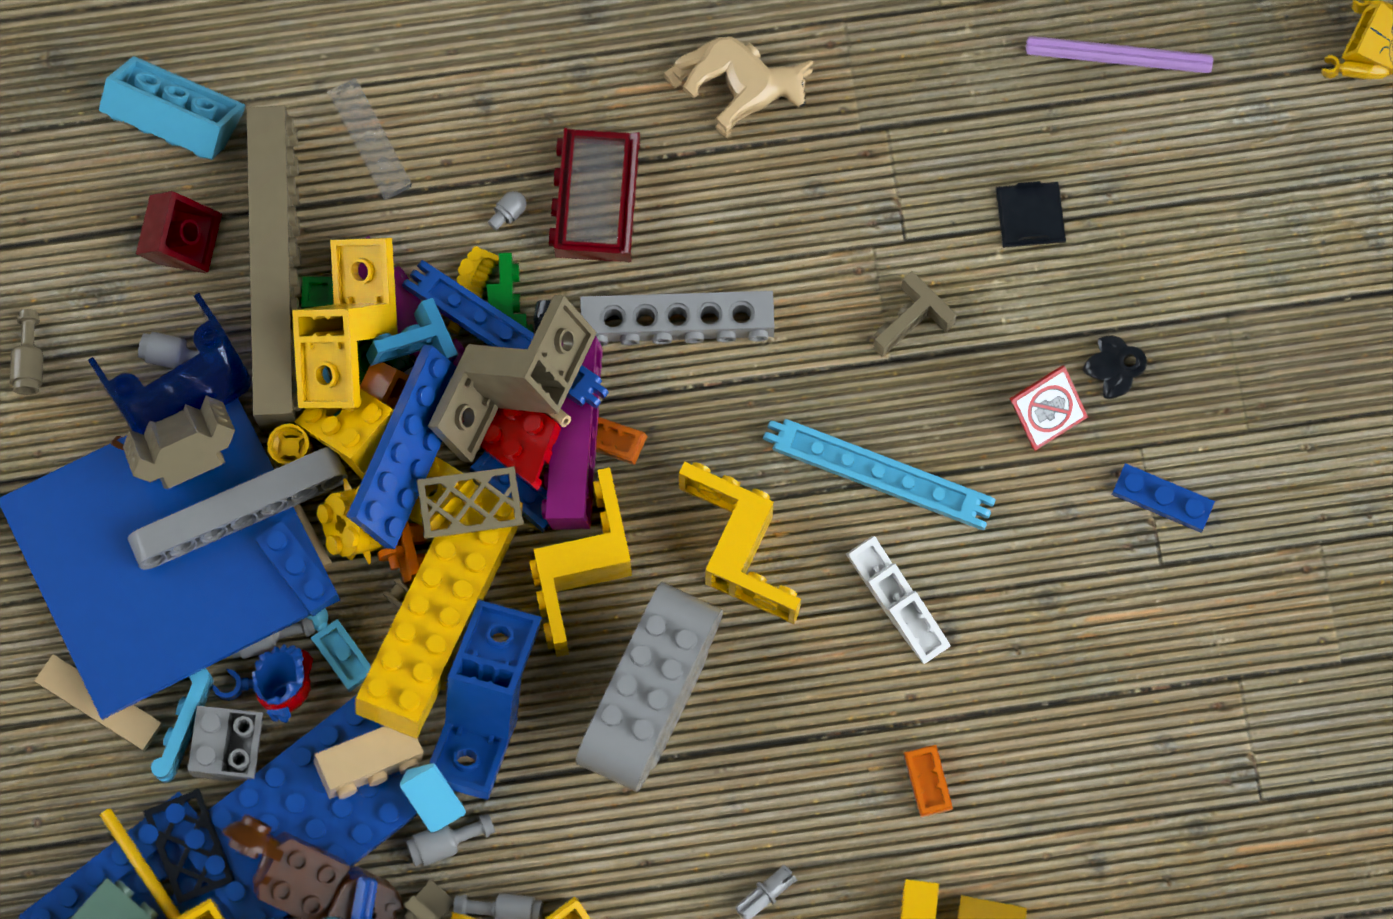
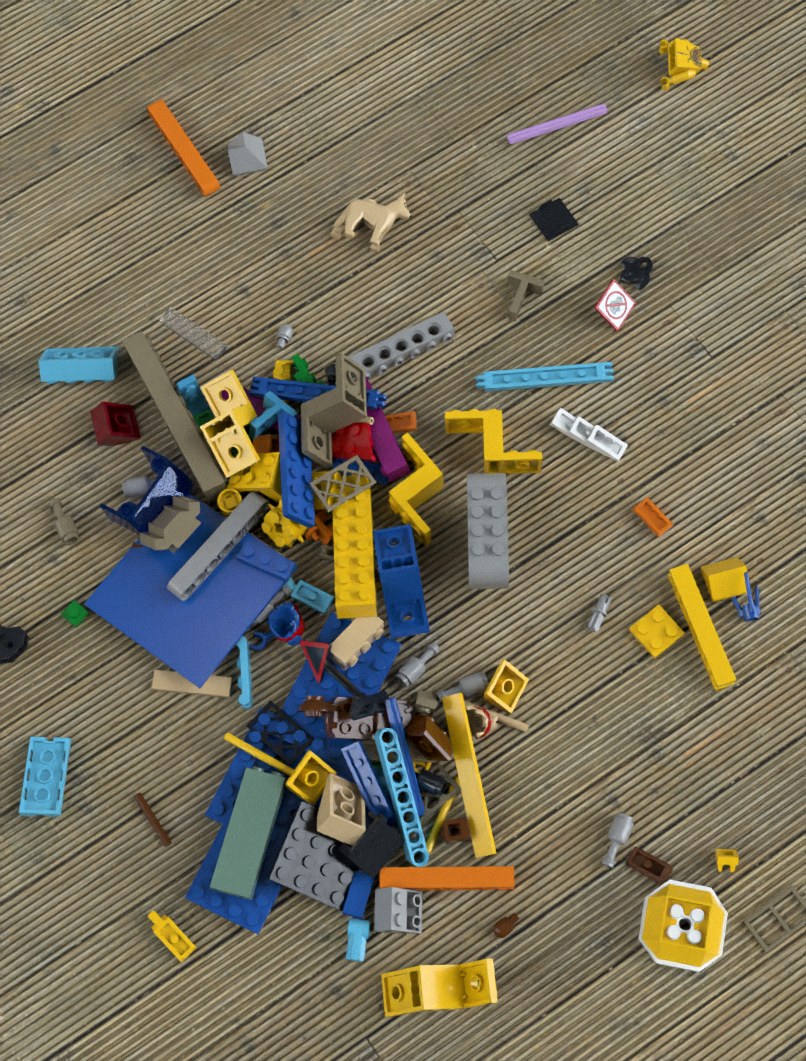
camera: 20 degrees left, 5 degrees down
(225, 744) = (273, 671): light grey slope -> none
(314, 236) = (192, 395): none -> dark azure bracket
(322, 872) = (363, 705): none -> black piece
(431, 796) = (399, 643): medium azure slope -> none
(595, 195) = (326, 307): window -> none
(1163, 498) = (695, 324): blue plate -> none

